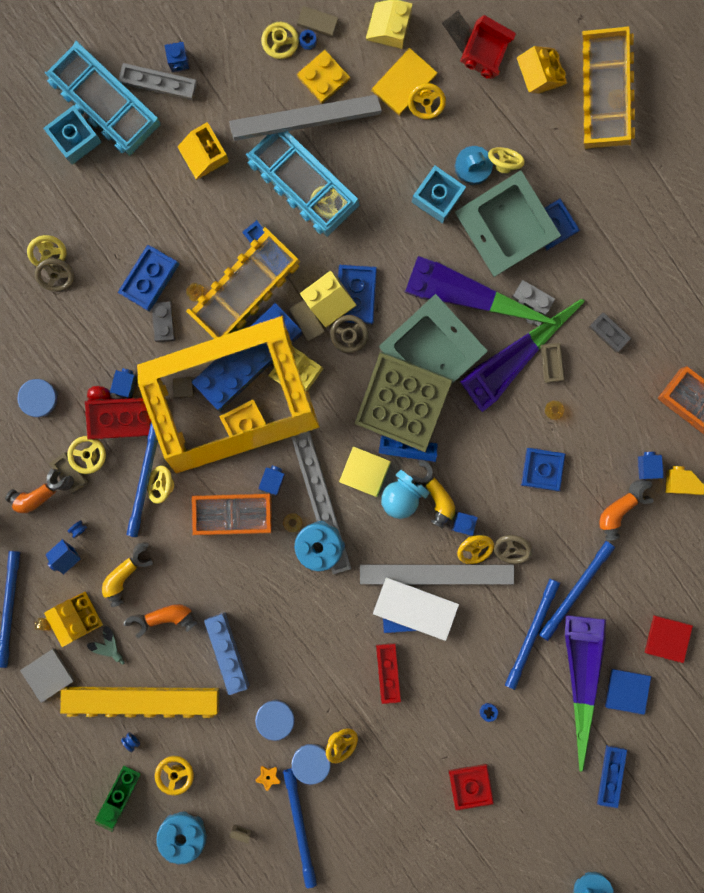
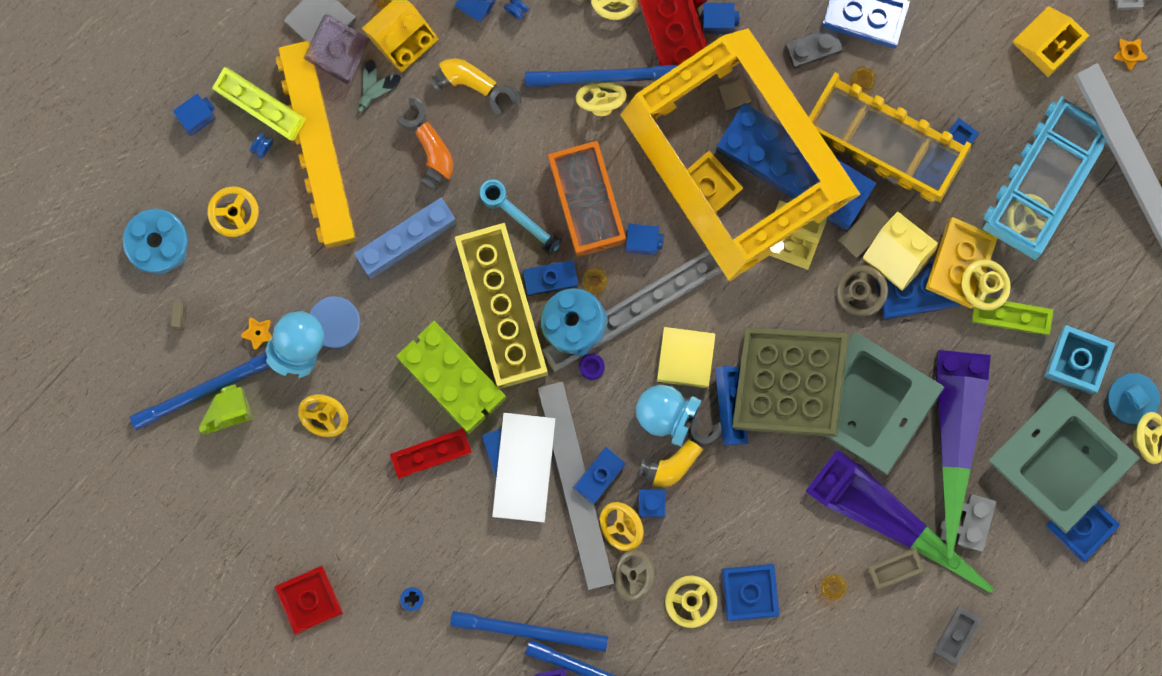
camera: 75 degrees right, 5 degrees down
(72, 669) = (336, 48): none -> clear purple tile
(93, 786) = (195, 114): none -> blue brick
(98, 737) = (259, 103): none -> neon yellow tile
(117, 799) = (184, 148): green slope -> none
(222, 94) = (1135, 47): none -> light orange plate
(257, 548) = (550, 243): none -> medium azure piece
(282, 554) = (550, 278): none -> blue plate
(285, 755) = (295, 344): none -> medium azure tile
(294, 596) = (501, 306): none -> light yellow brick
(310, 764) = (287, 390): medium blue tile -> none
(319, 814) = (226, 410): none -> lime slope
(337, 645) = (451, 377): none -> lime piece
(347, 258) = (958, 249): none -> yellow plate
(354, 541) = (591, 367): none -> dark purple tile
(368, 235) = (997, 280): none -> light yellow piece
(394, 233) = (1016, 317): none -> lime plate
(434, 556) = (599, 475): none -> blue plate
(533, 525) = (697, 619): none -> light yellow piece

